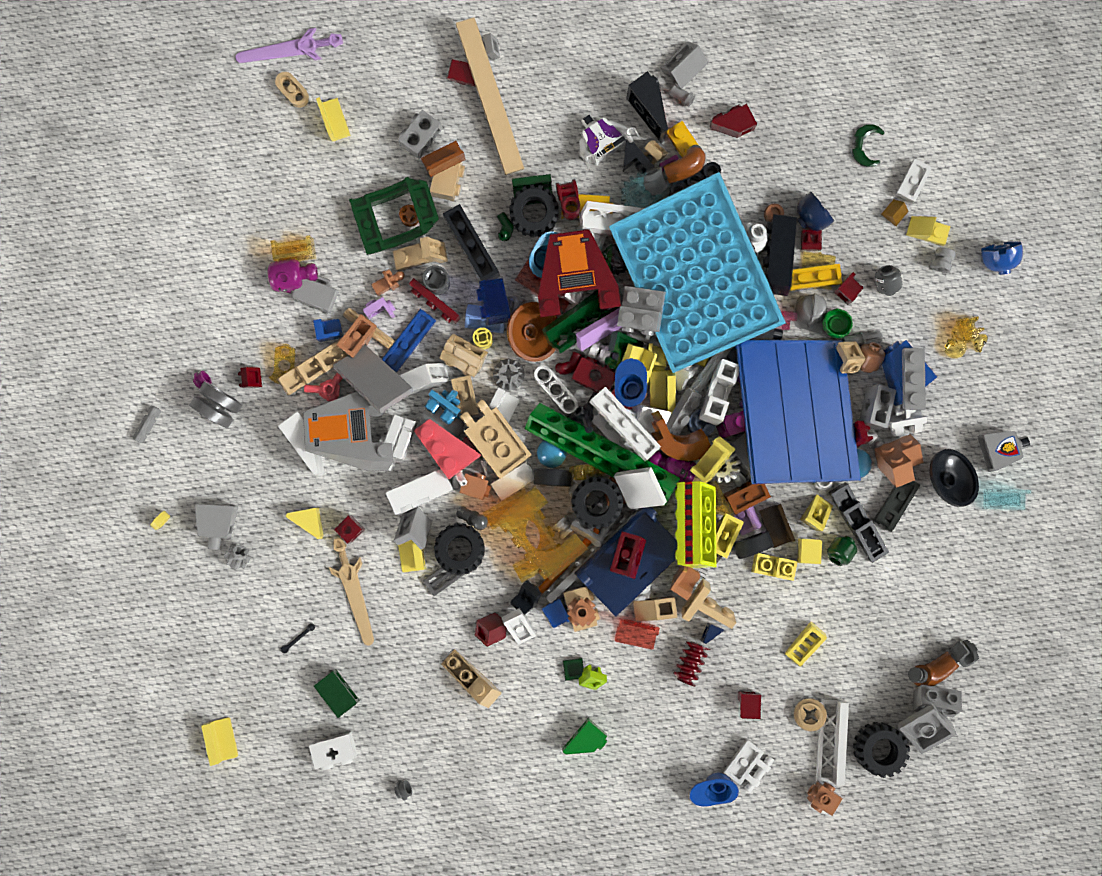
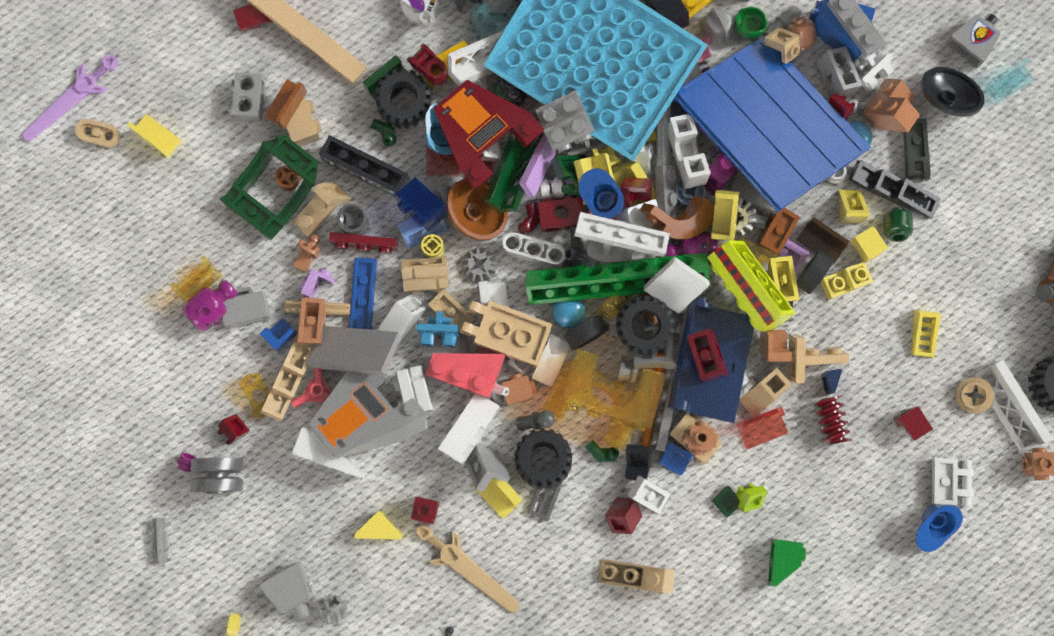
camera: 30 degrees left, 5 degrees down
(505, 574) = (602, 454): none -> dark green arm
(661, 395) = (636, 189): none -> dark red panel

